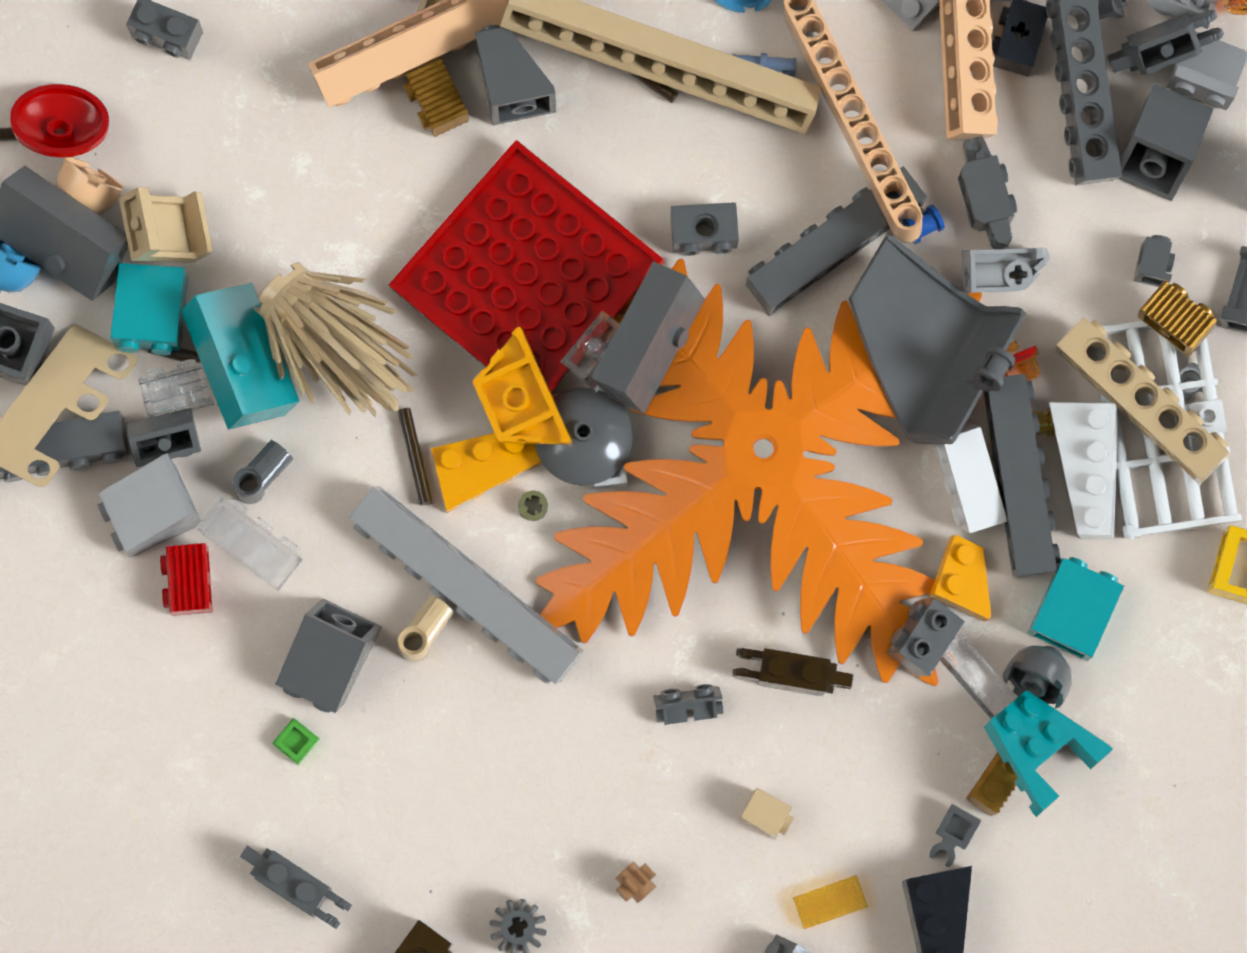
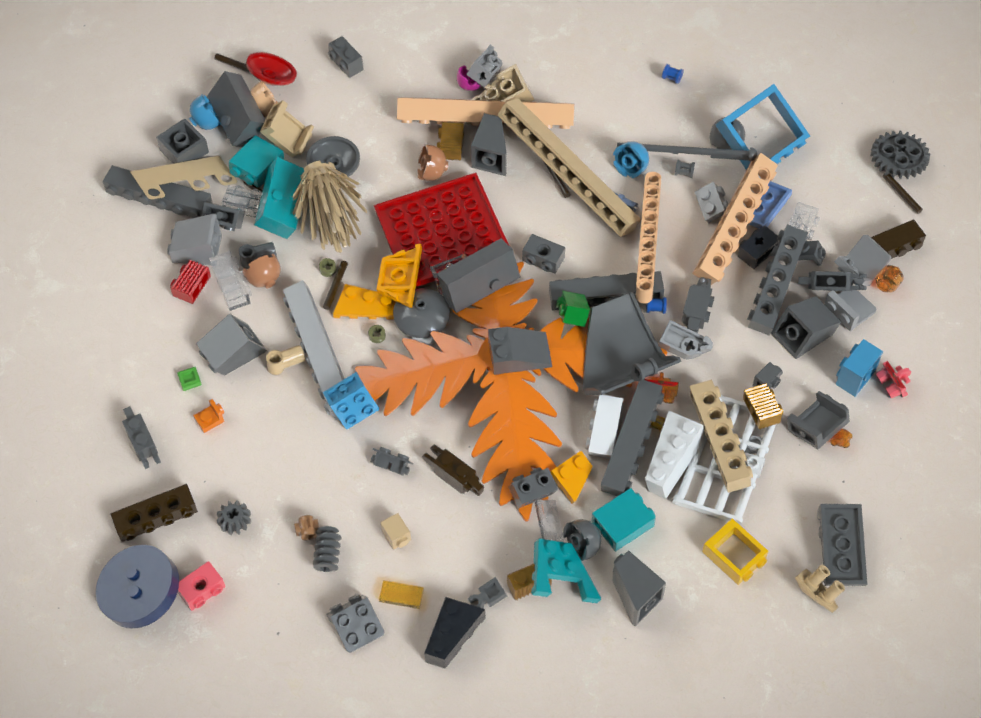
camera: 35 degrees right, 20 degrees down
(268, 217) = (336, 150): none -> dark grey dish
(296, 502) = (263, 271): none -> nougat cylinder
(371, 787) = (210, 416): none -> orange bracket
(383, 443) = (327, 272): none -> olive bush
(434, 159) = (432, 163): none -> nougat cylinder
(575, 649) = (351, 401): none -> dark azure bracket
(687, 900) = (326, 549): none -> dark grey piece
(789, 438) = (518, 350): none -> dark grey slope
(816, 309) = (573, 308): none -> green brick
(1158, 709) = (637, 586): none -> dark grey slope

